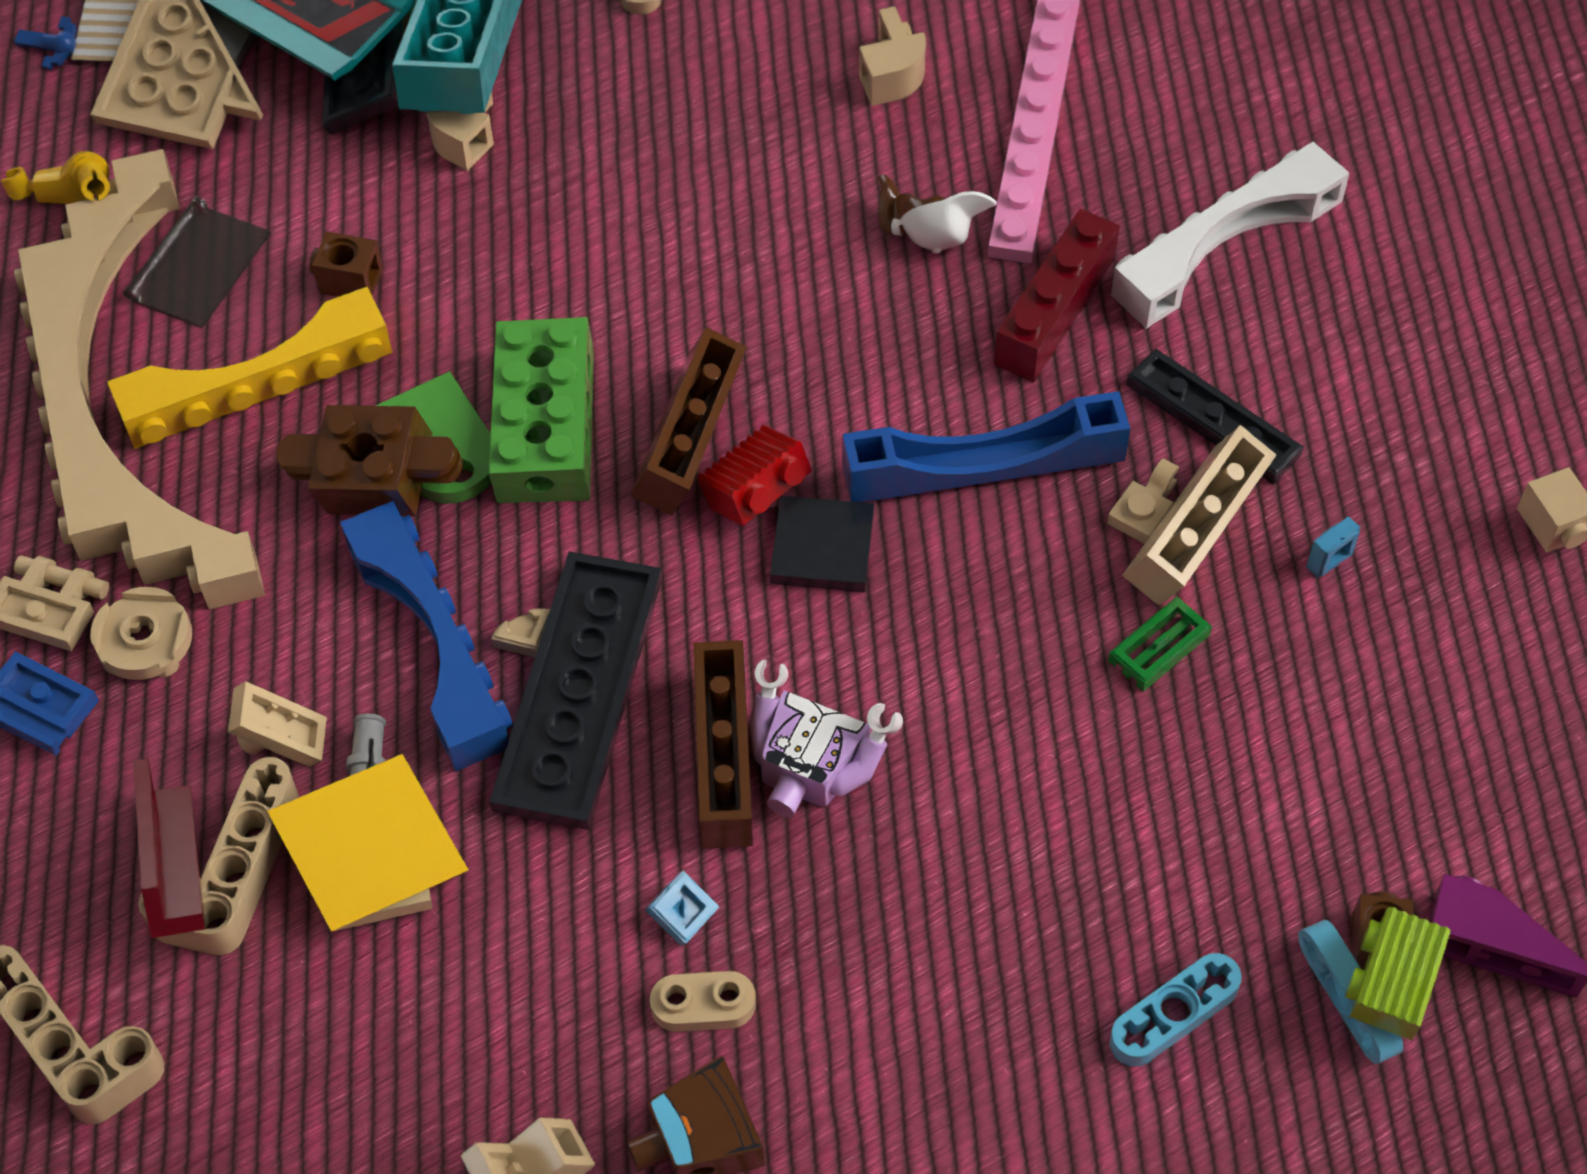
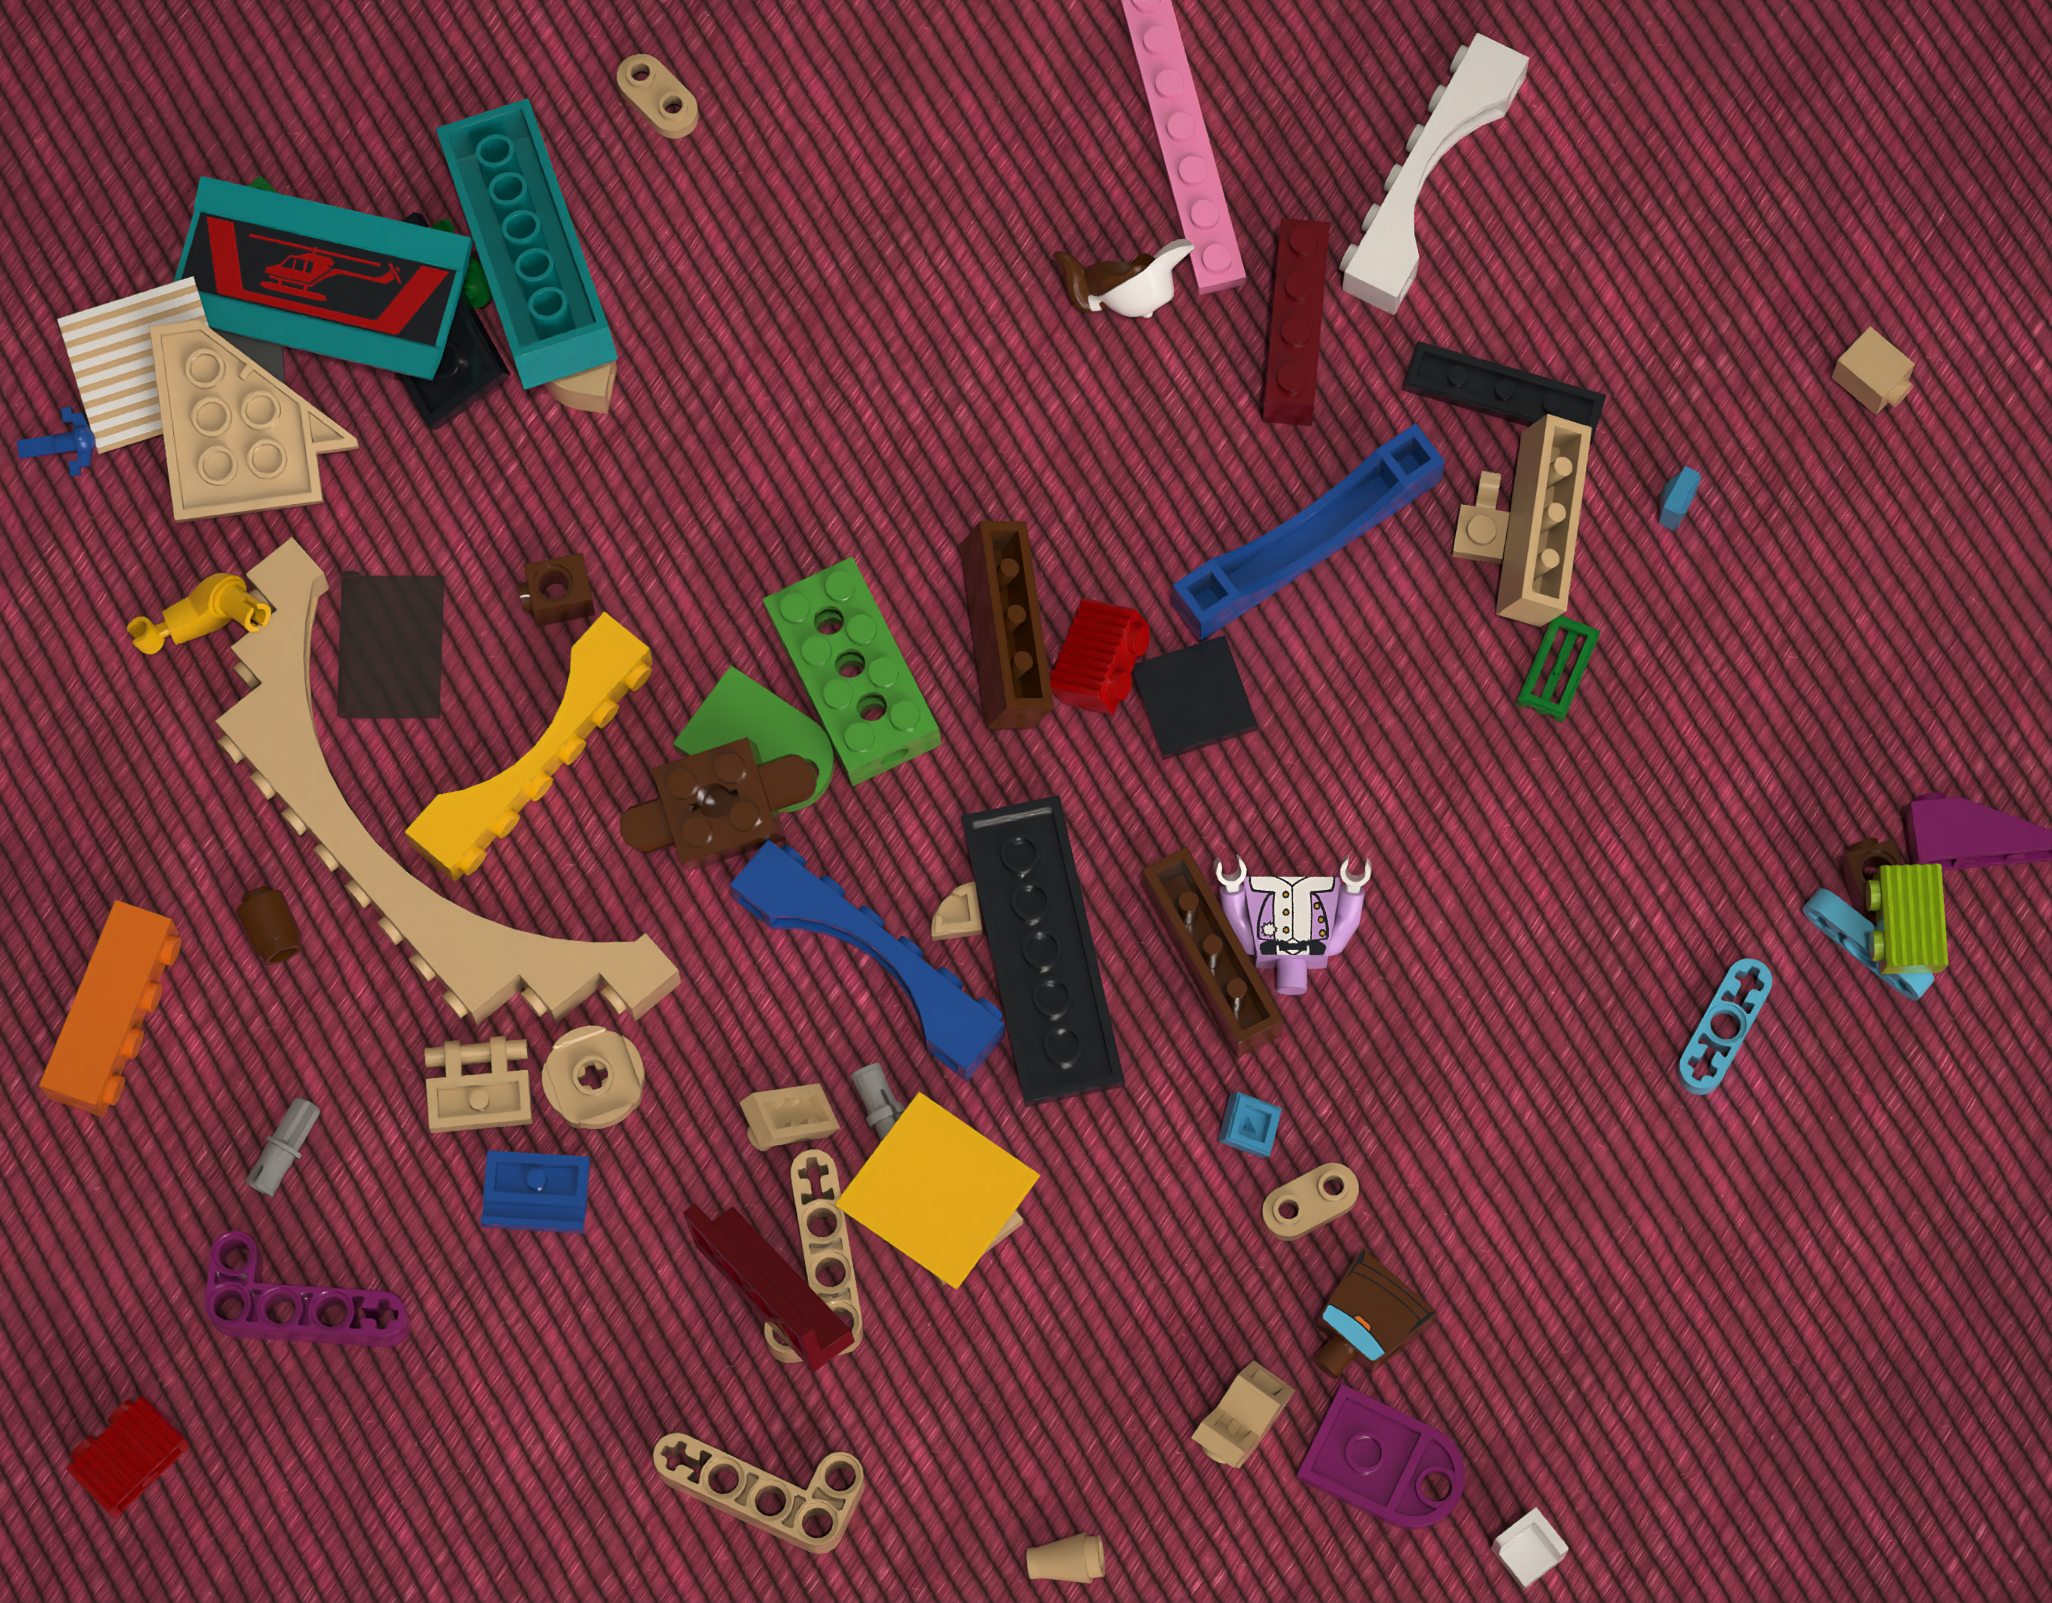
camera: 25 degrees left, 15 degrees up
(895, 63) = (1000, 101): tan brick -> none

